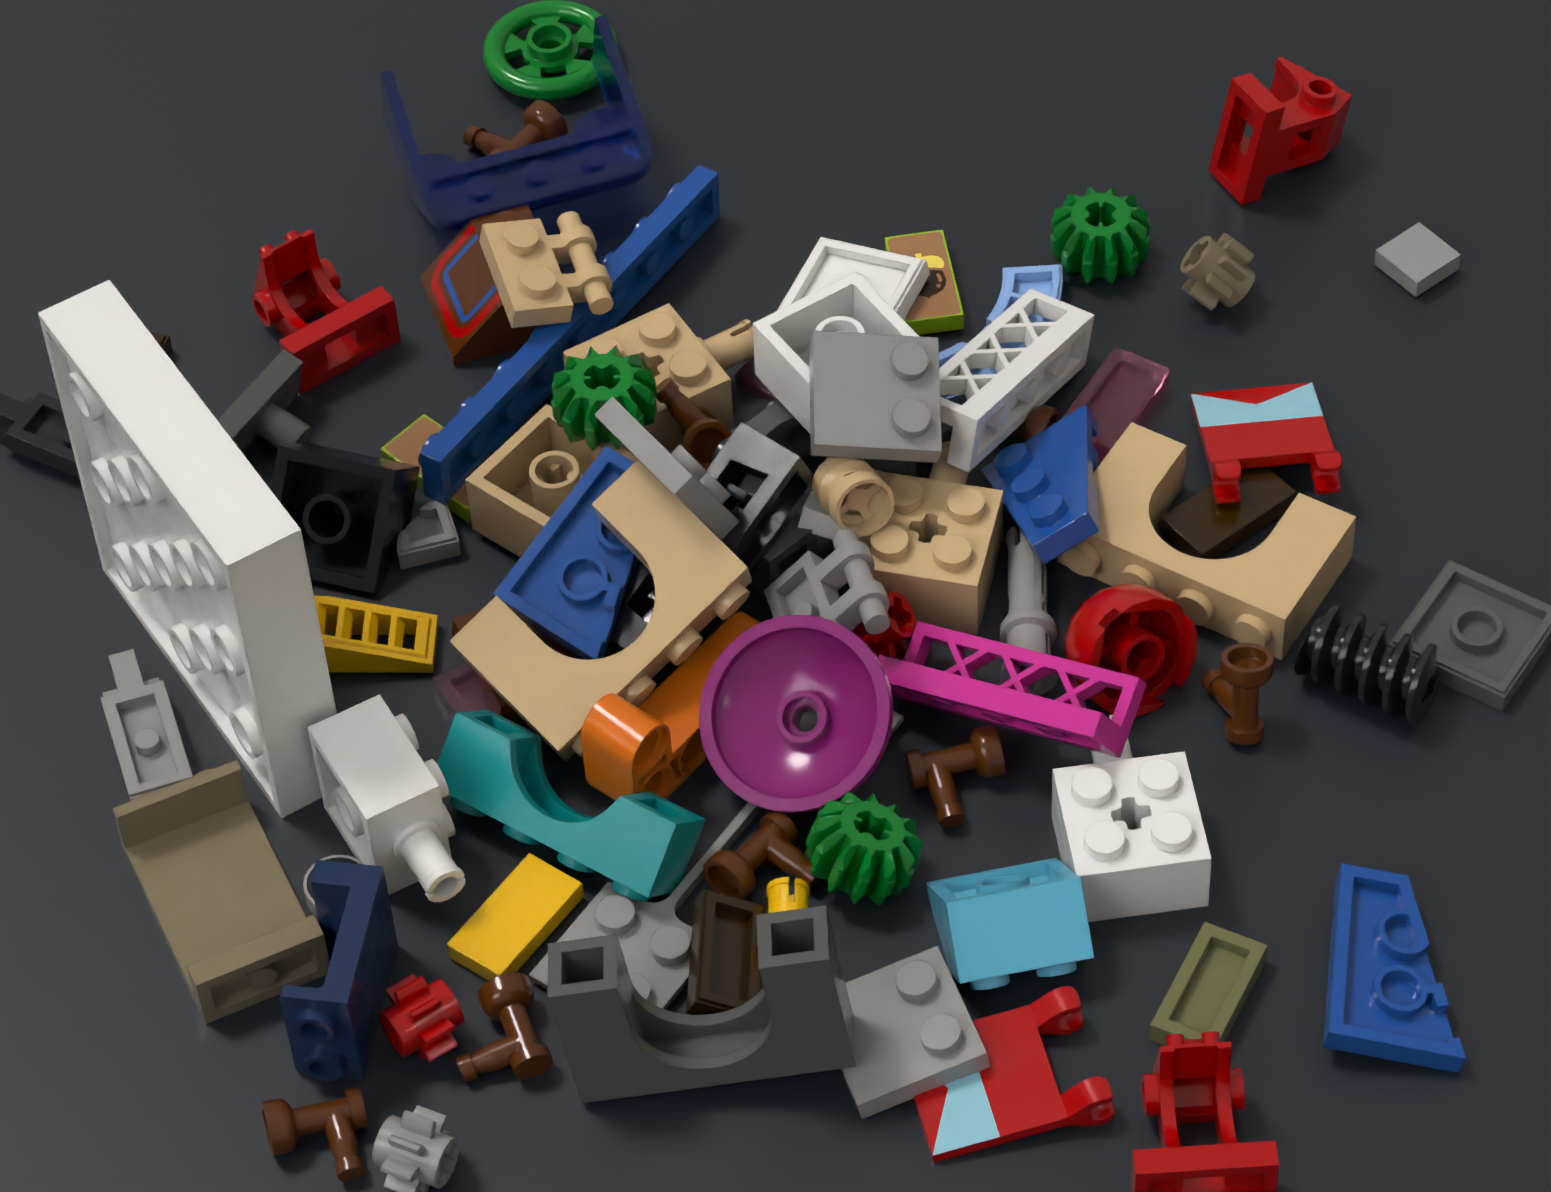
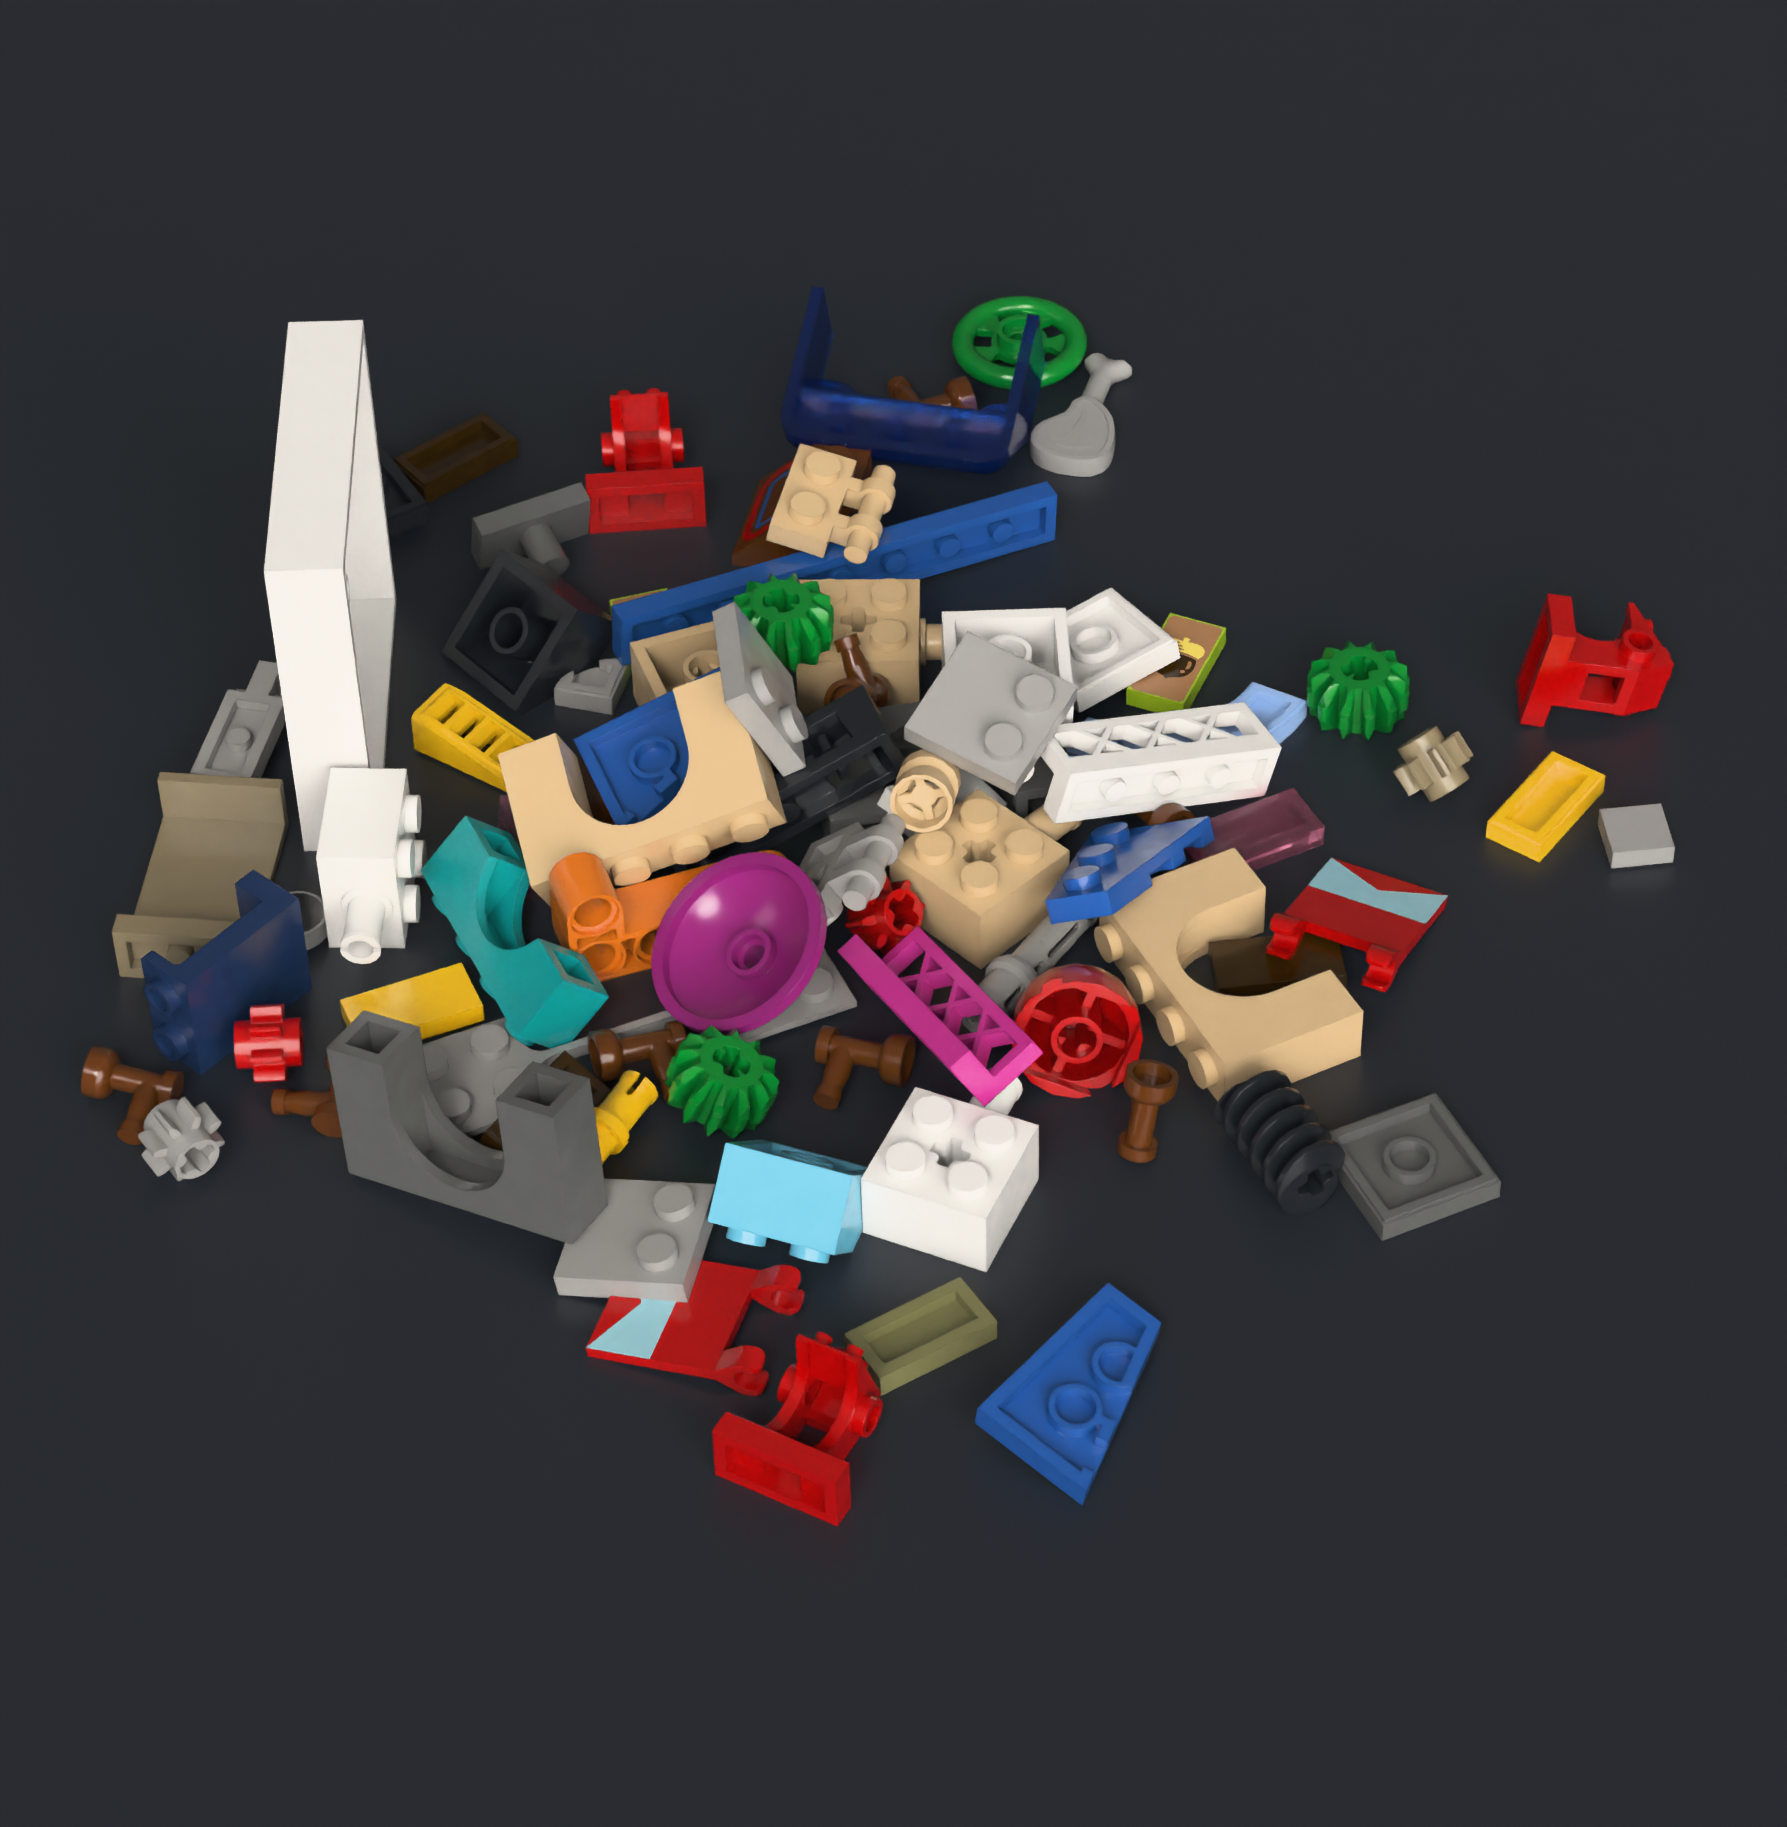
camera: 30 degrees right, 5 degrees down
(670, 106) = (1084, 435): none -> light grey piece
(1324, 267) = (1545, 806): none -> yellow tile

